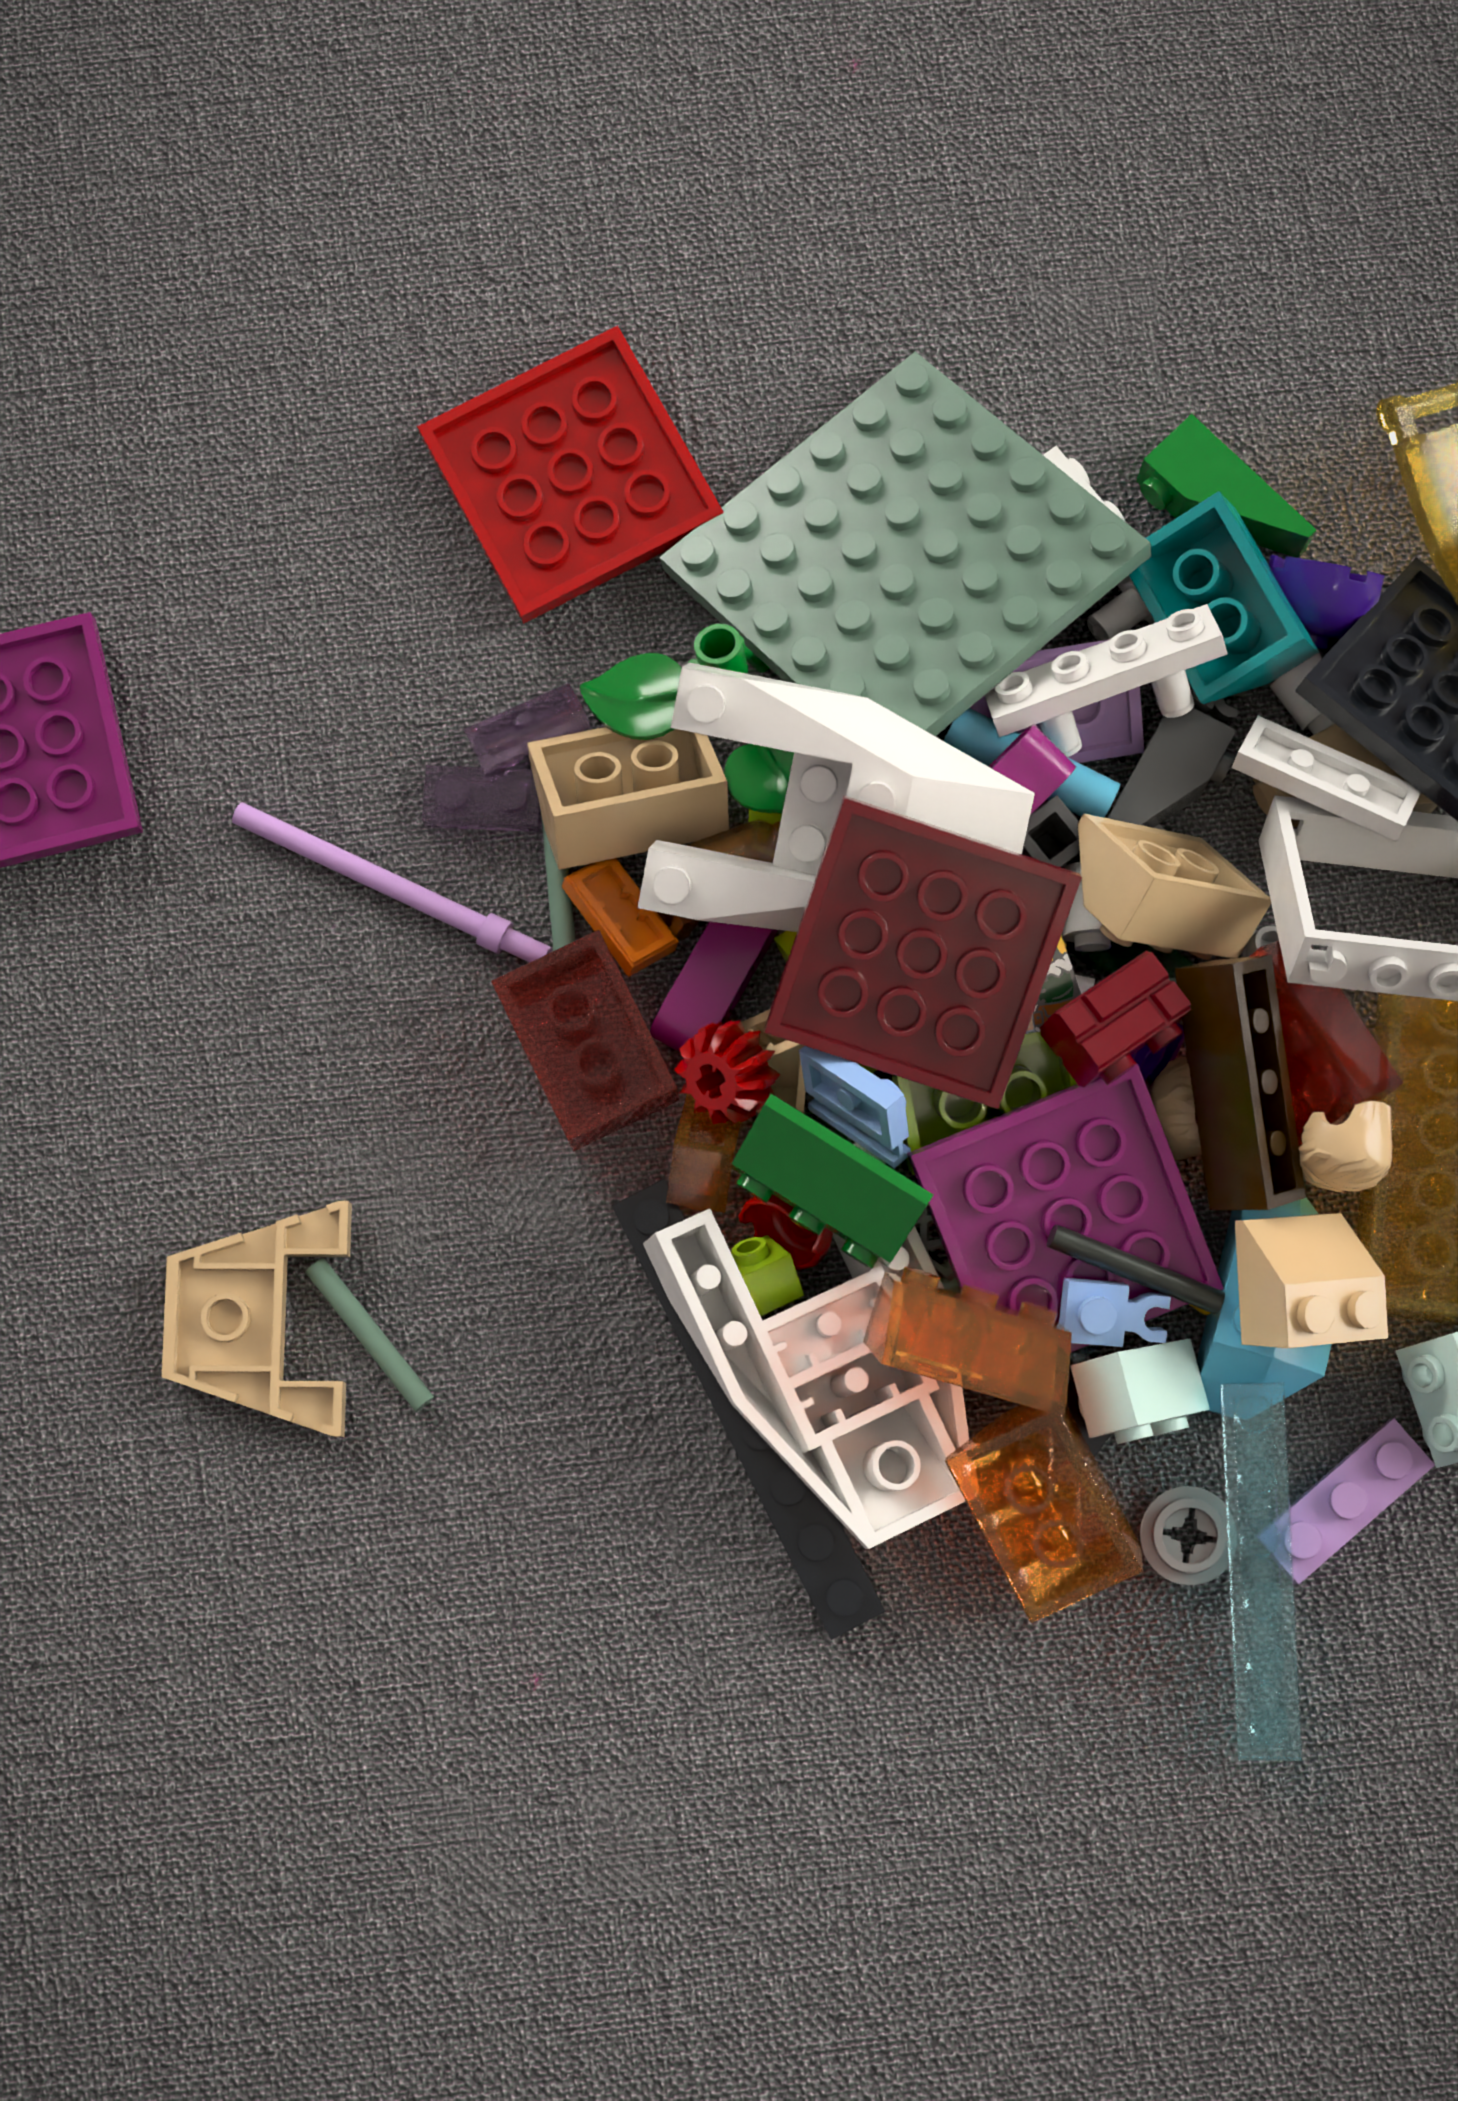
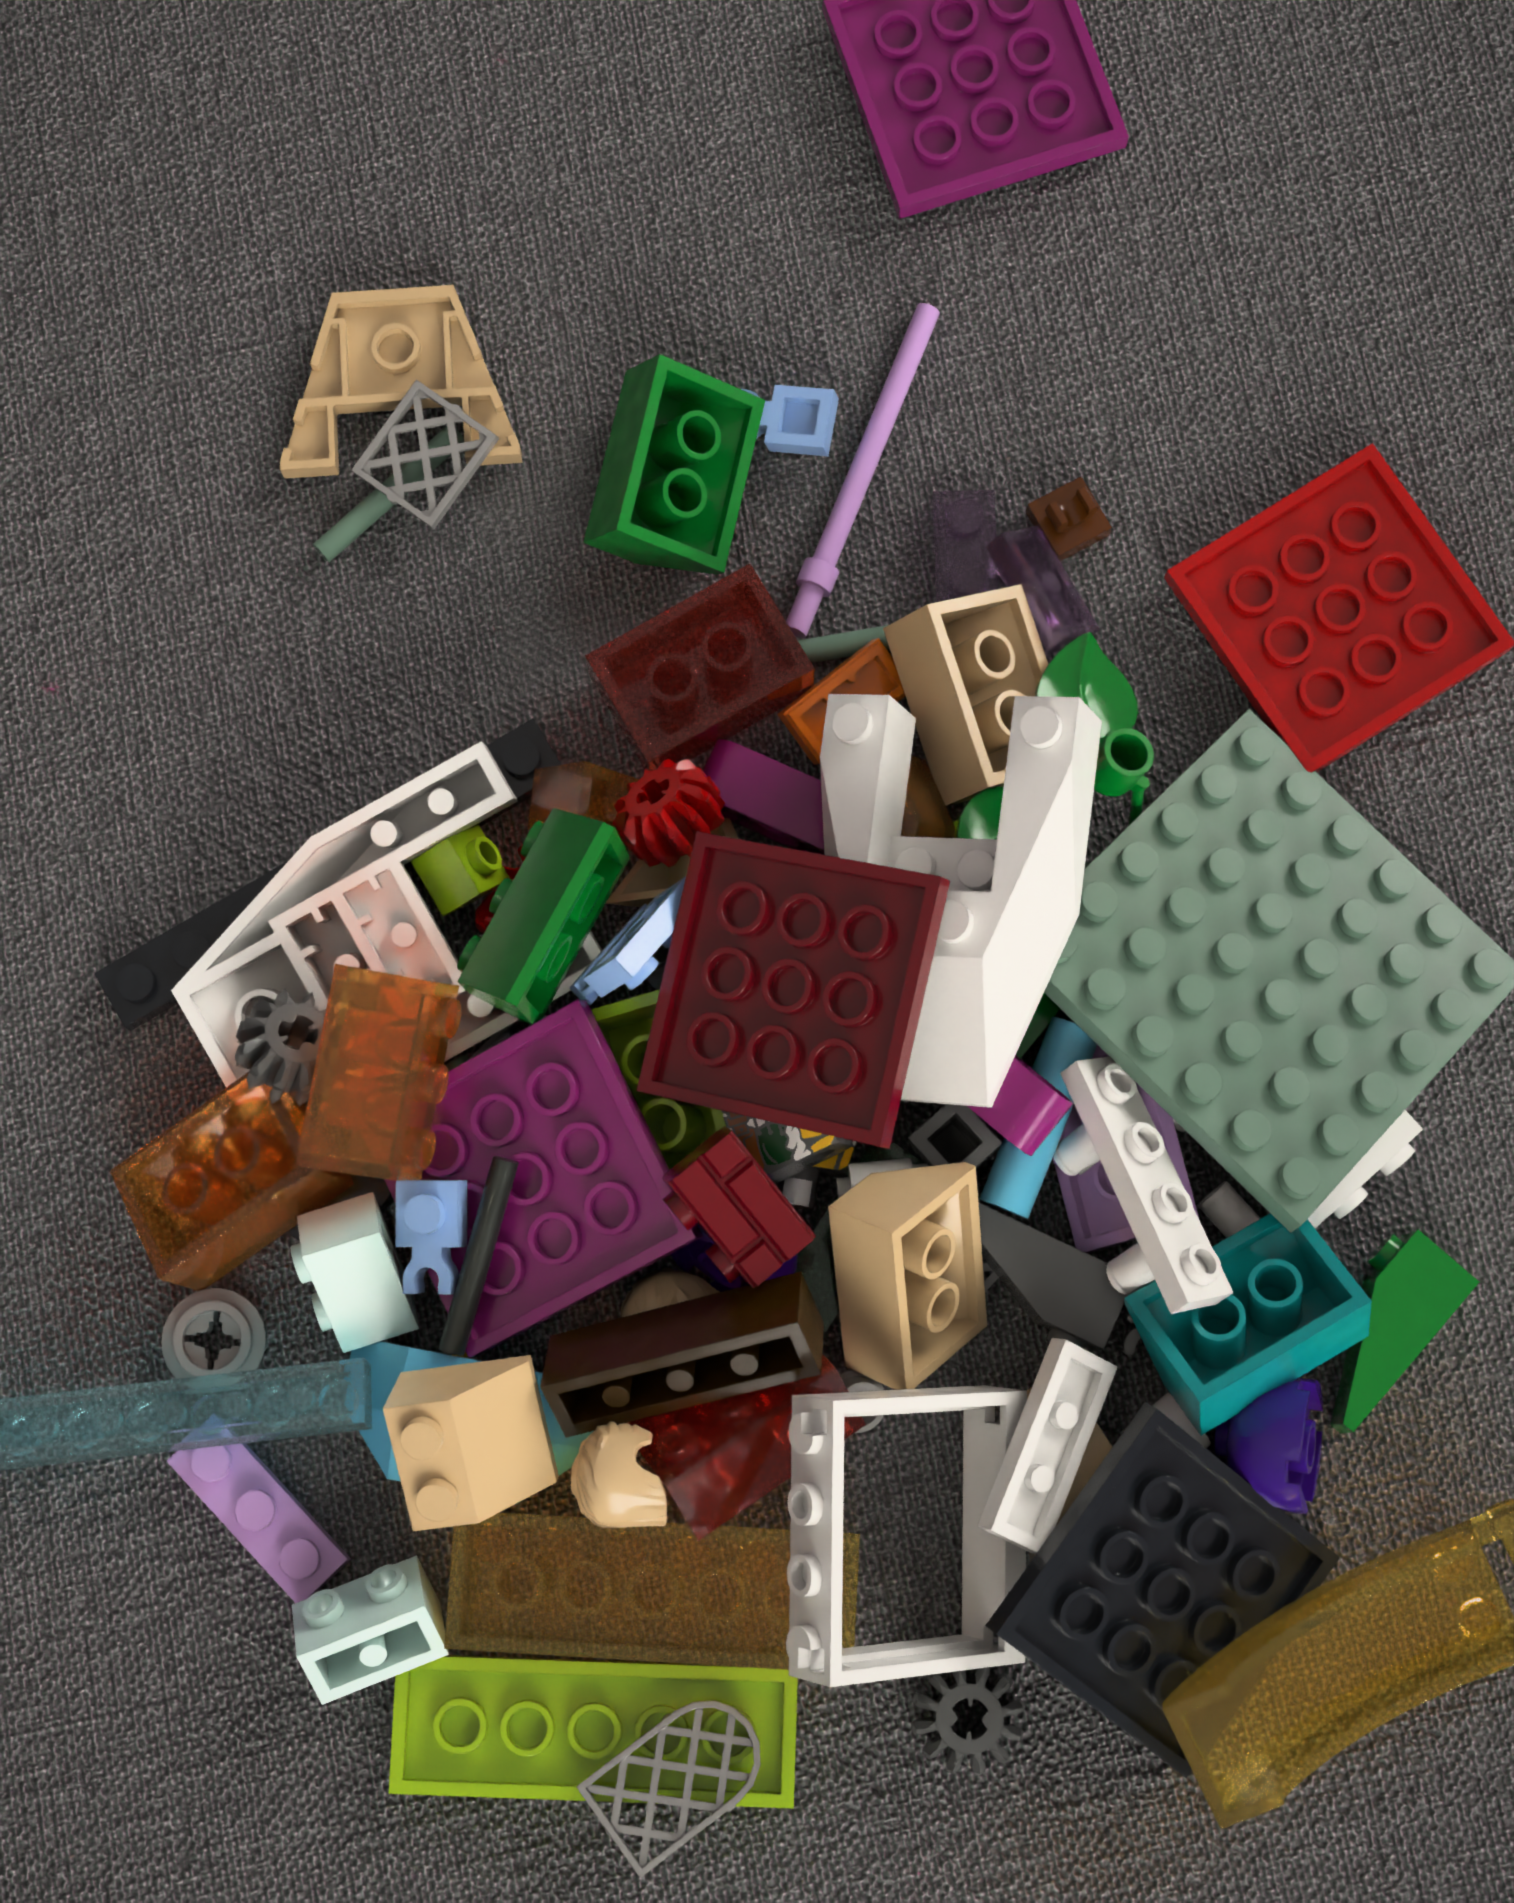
camera: 85 degrees right, 0 degrees up
(304, 1261) = (459, 480): none -> light grey window
(339, 941) = (799, 420): none -> light blue plate
(378, 1055) = (674, 468): none -> green slope
(457, 701) = (1069, 518): none -> reddish brown tile
(948, 1445) = (265, 1050): none -> dark grey gear

